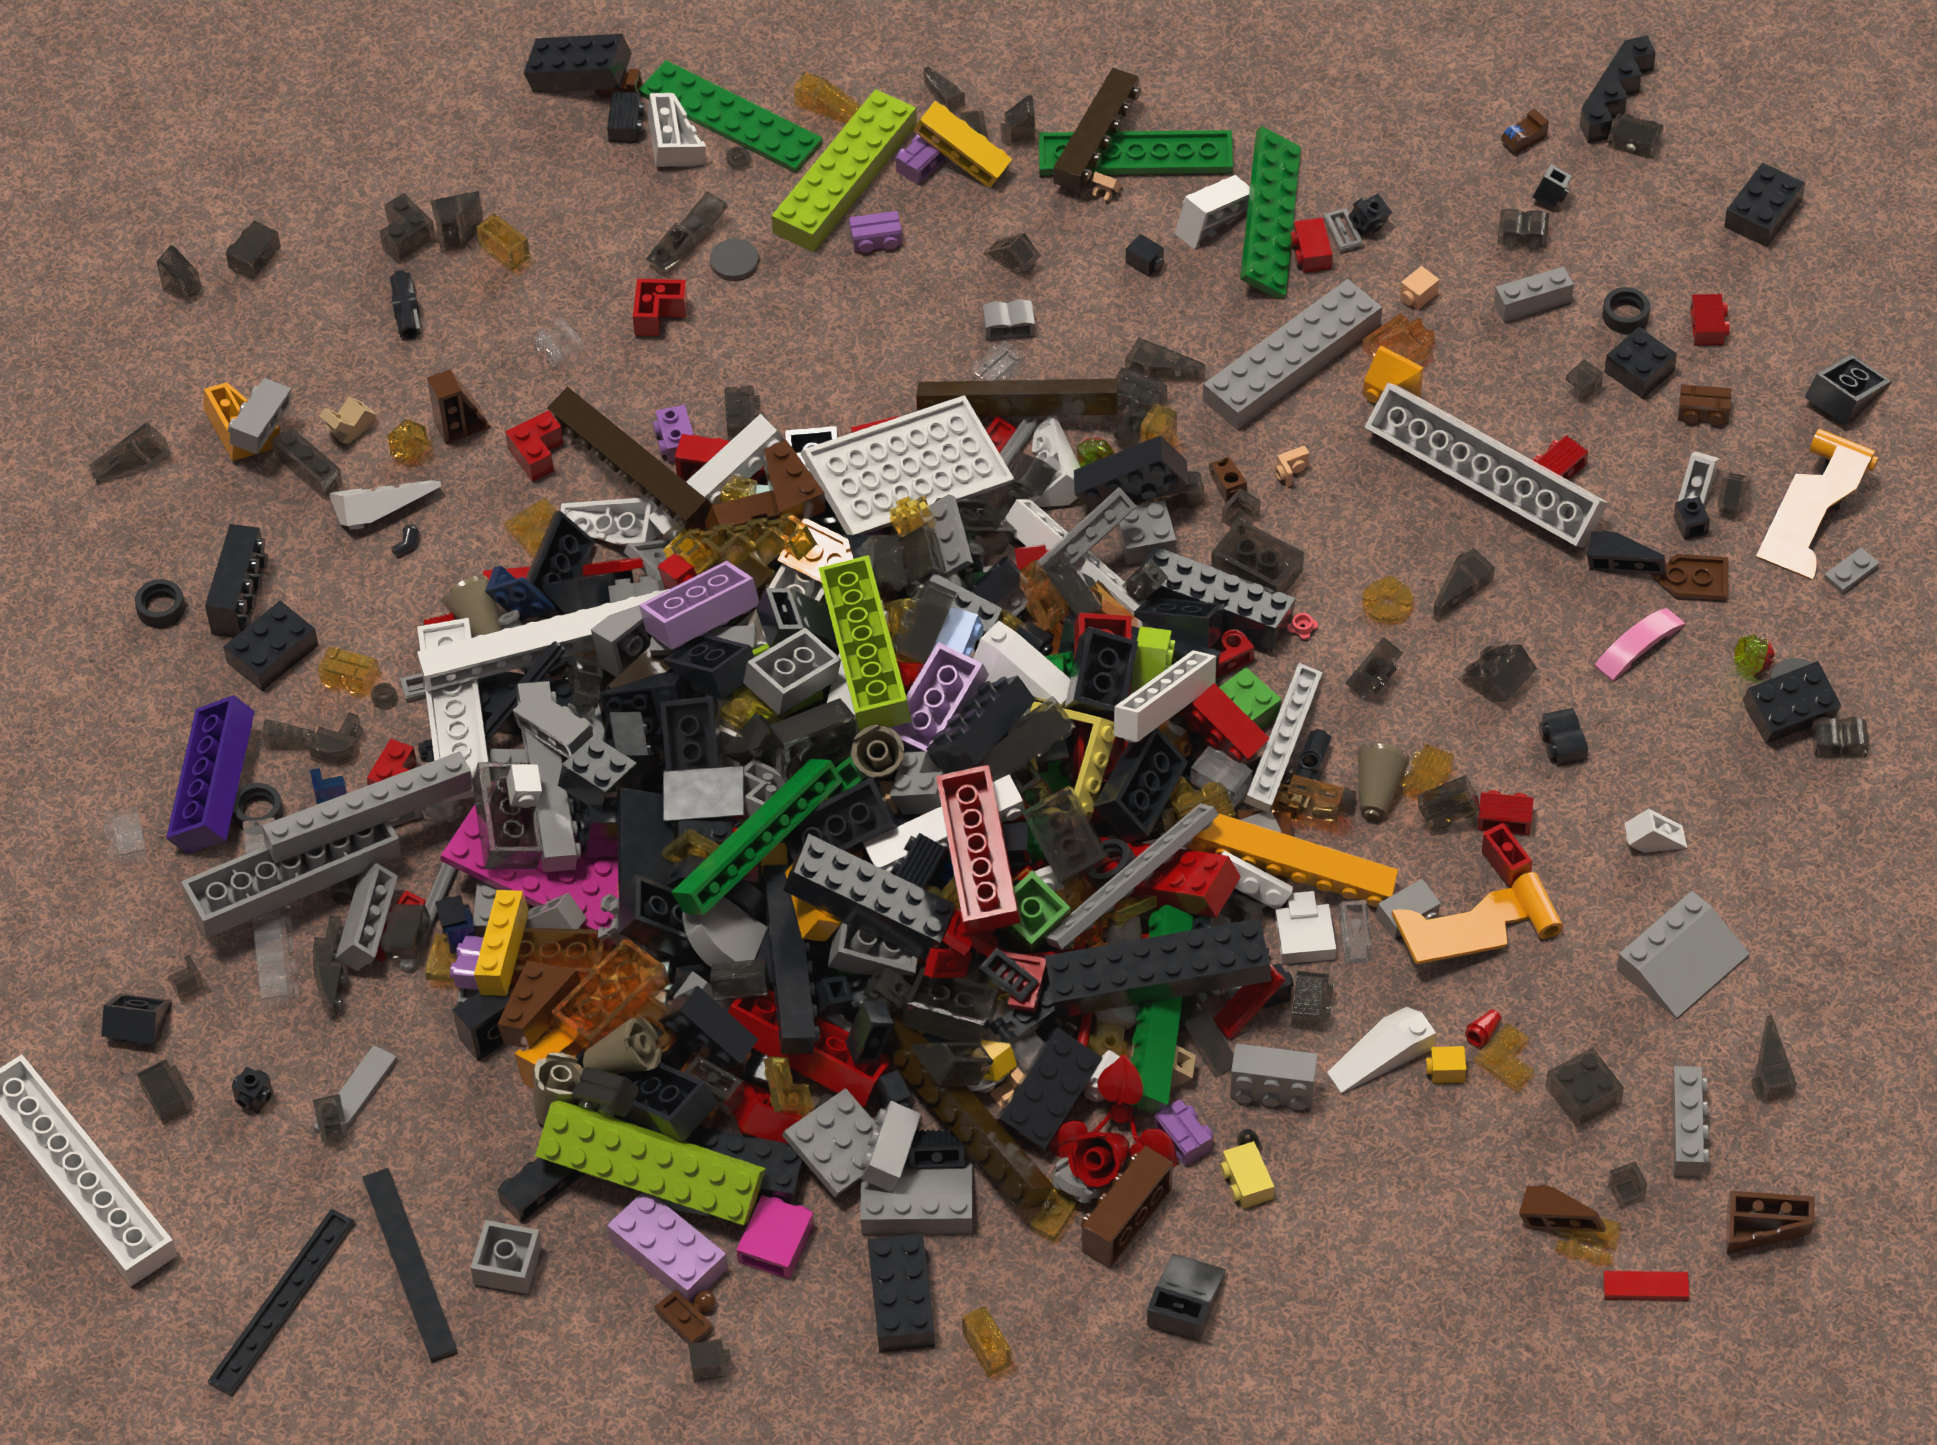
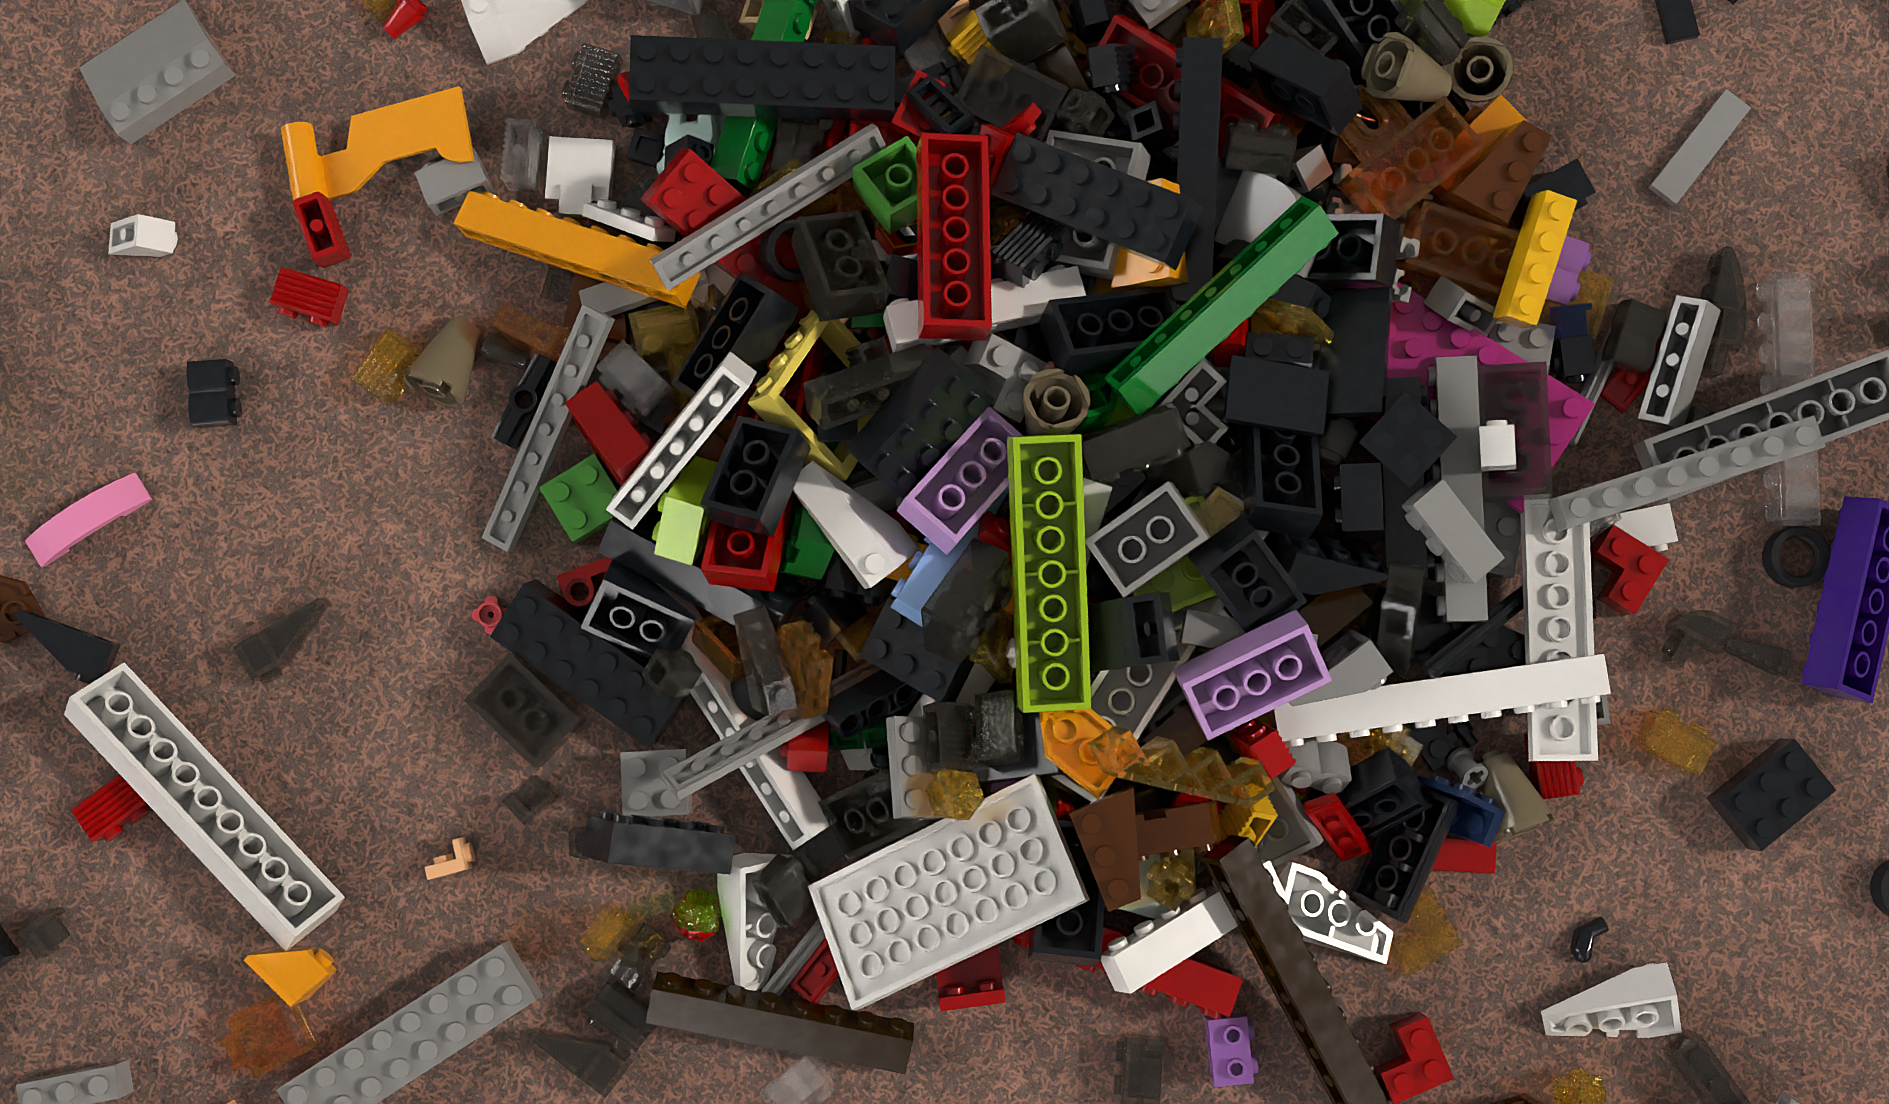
camera: 175 degrees left, 30 degrees up
(236, 581) = (1814, 894): black brick -> none
(252, 1089) = (1822, 160): black brick -> none
(327, 788) = (1709, 574): clear blue panel -> none
(330, 1117) = (1736, 101): clear smoke brick -> none
(383, 689) = (1641, 701): clear smoke plate -> none
(1227, 477) = (536, 853): reddish brown leg -> none
(1375, 666) = (416, 523): clear smoke brick -> none
(1387, 588) = (395, 640): clear yellow plate -> none
(1449, 803) = (371, 307): clear smoke brick -> none
(1498, 671) = (269, 499): clear smoke slope -> none

